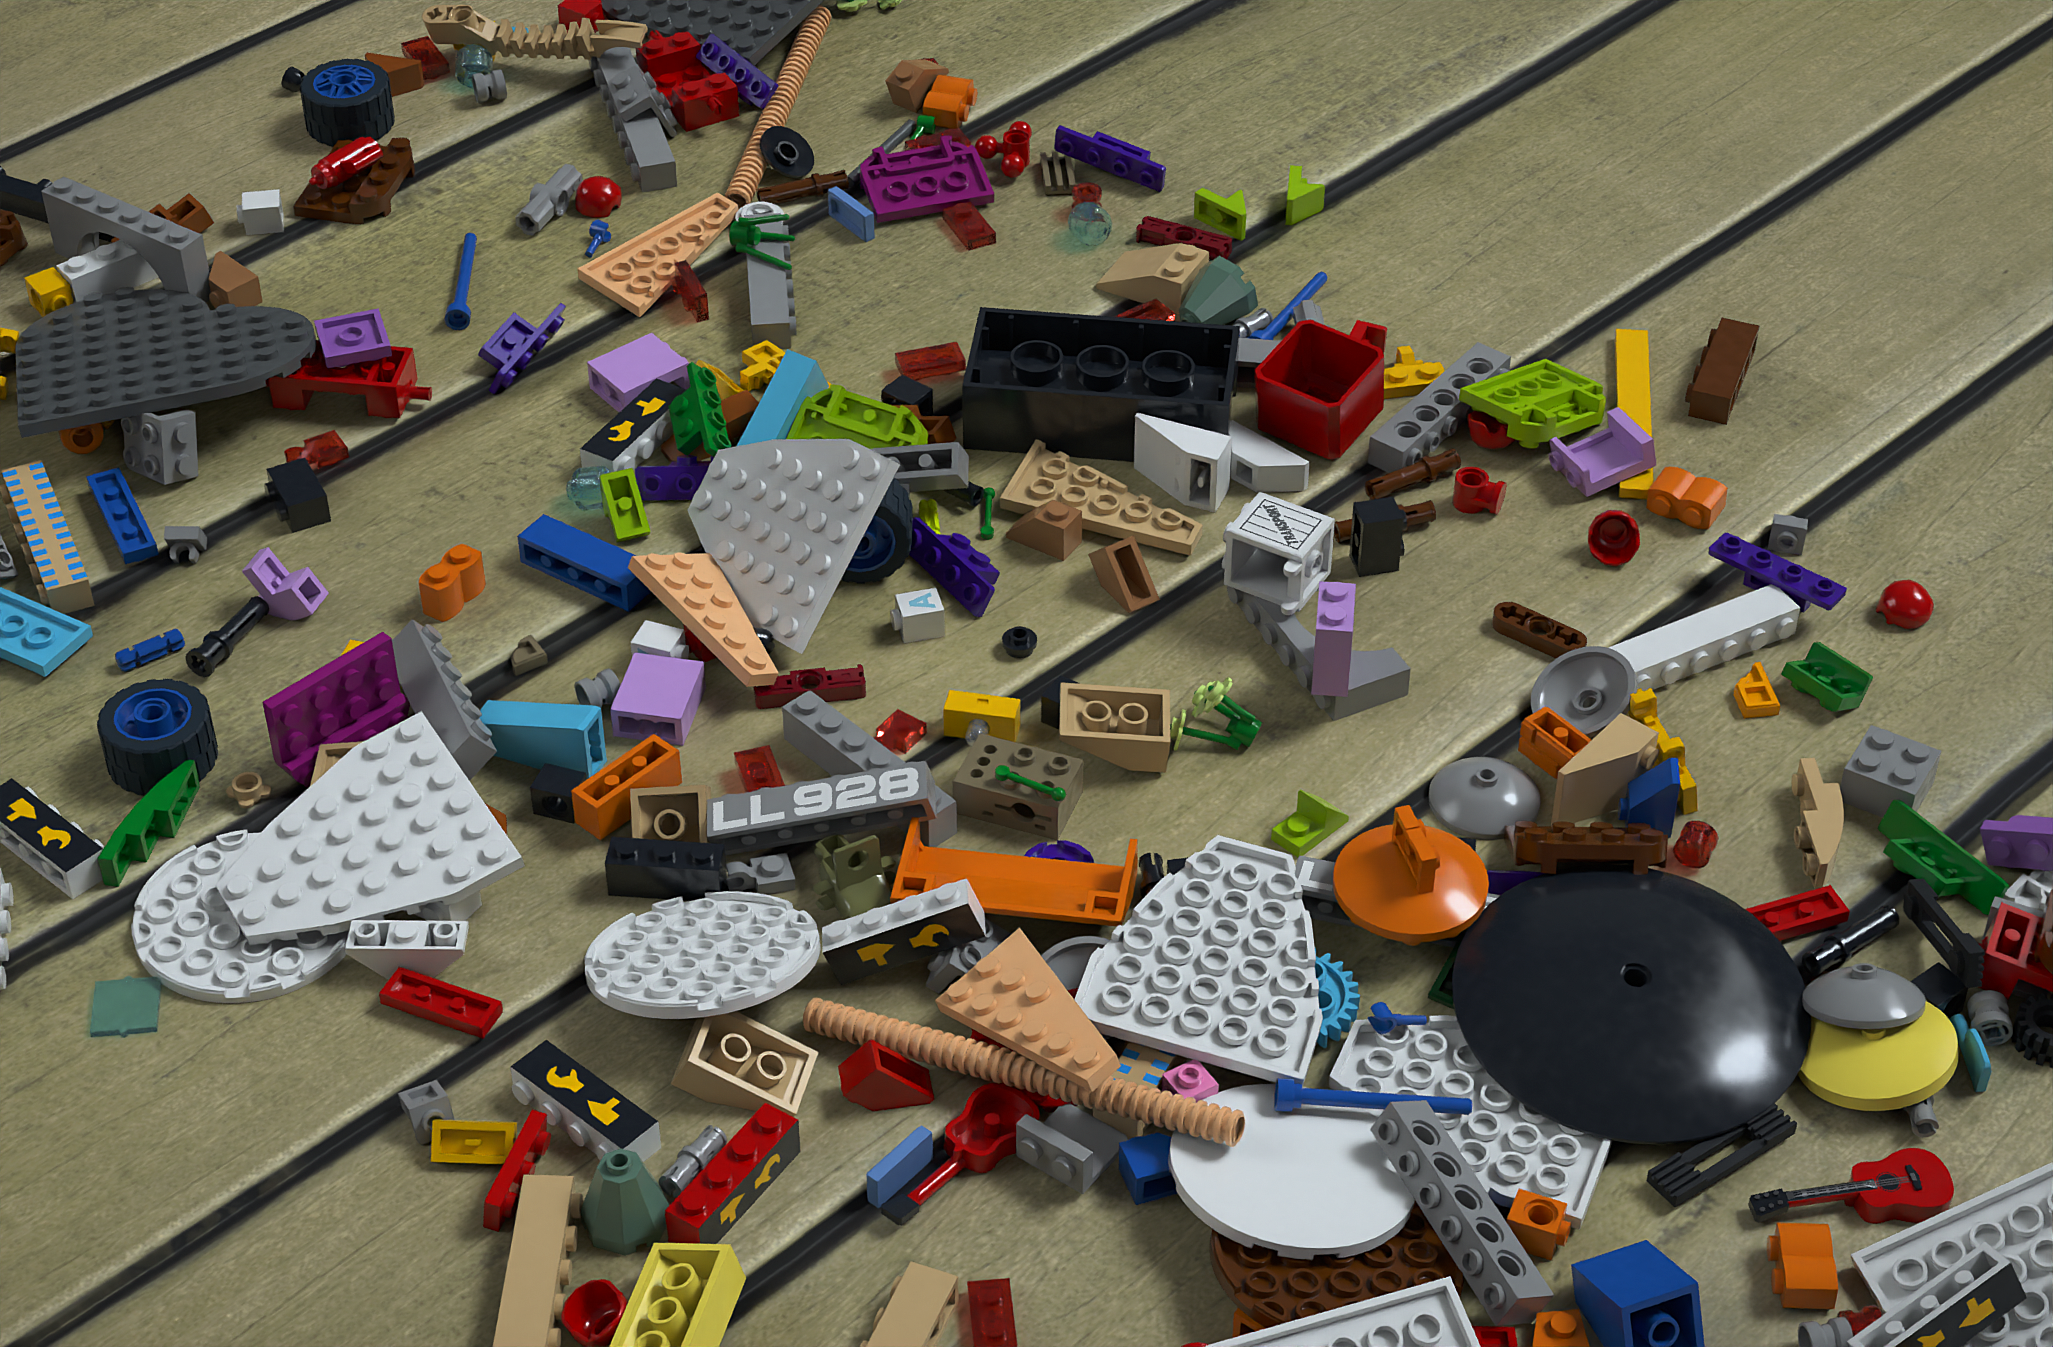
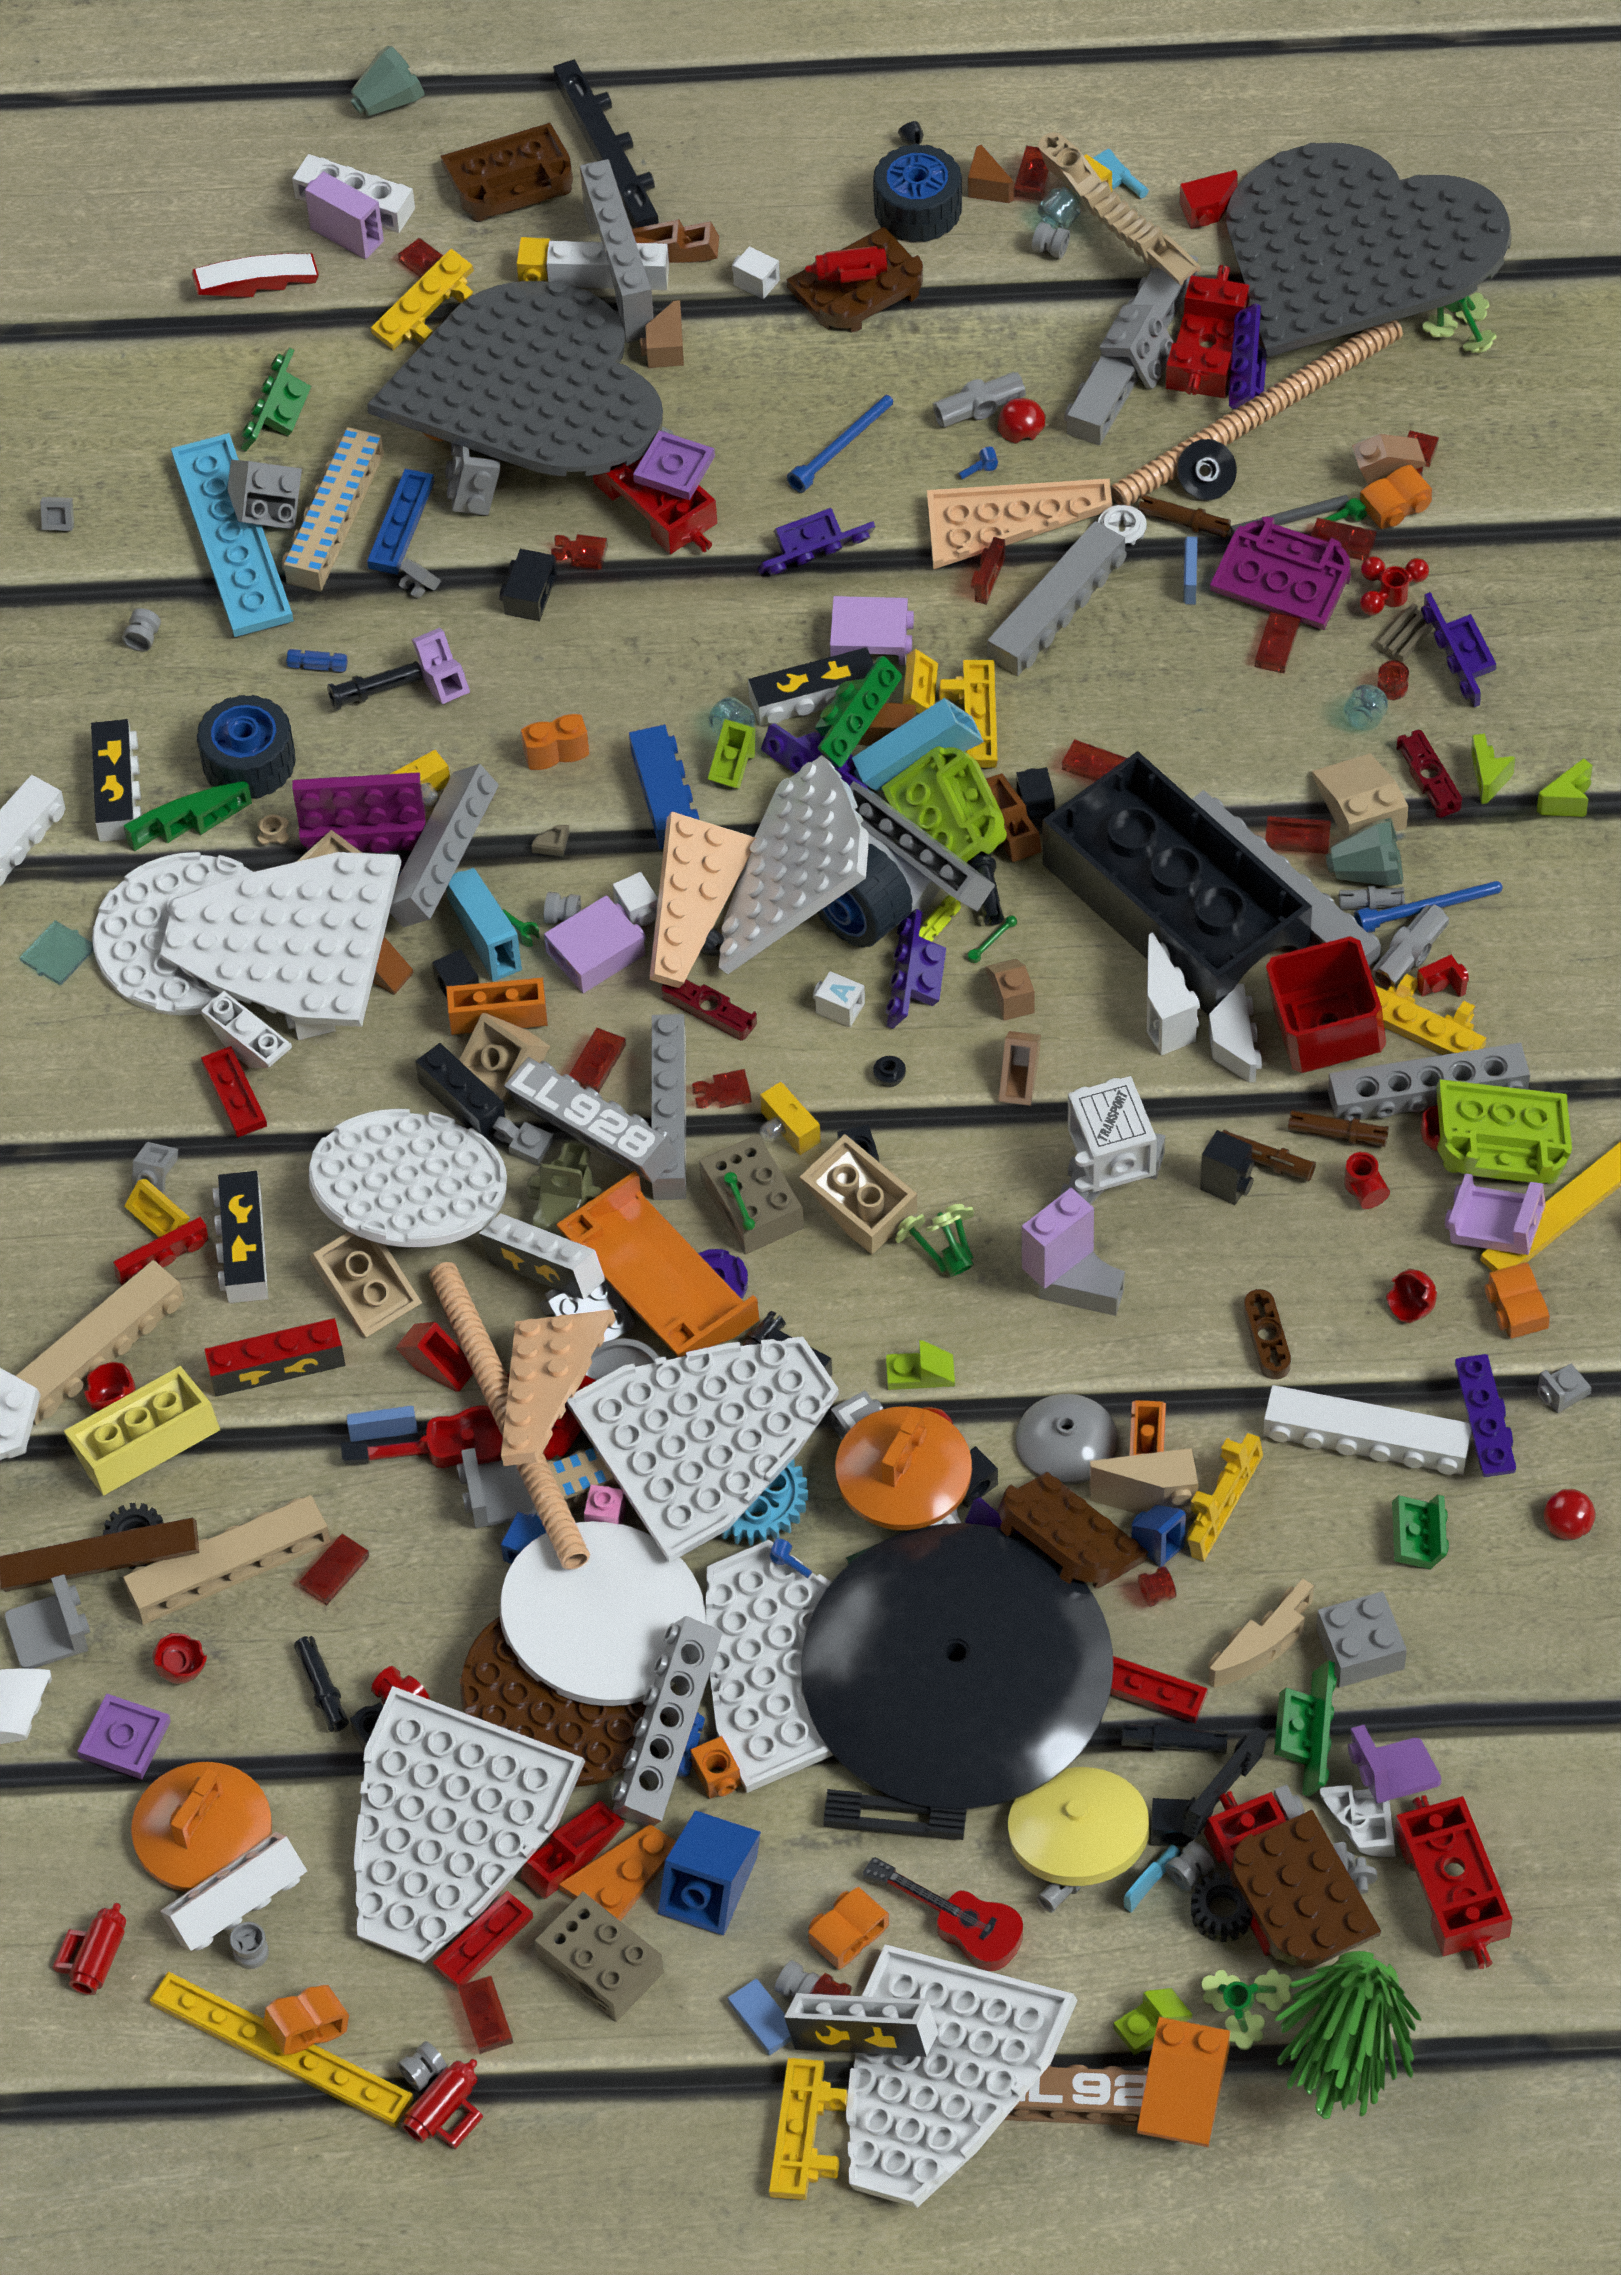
camera: 45 degrees right, 15 degrees up
(623, 1204) = (197, 1323): sand green cone -> none
(692, 1160) = (269, 1323): light grey pin -> none
(745, 234) = (1067, 548): green plant -> none
(1103, 501) = (1071, 980): tan wing -> none
(1292, 1095) = (653, 1561): blue piece -> none
(1586, 688) = (1217, 1408): light grey dish -> none
(1756, 694) = (1363, 1502): light orange tile -> none
(1864, 998) = (1101, 1786): light grey dish -> none

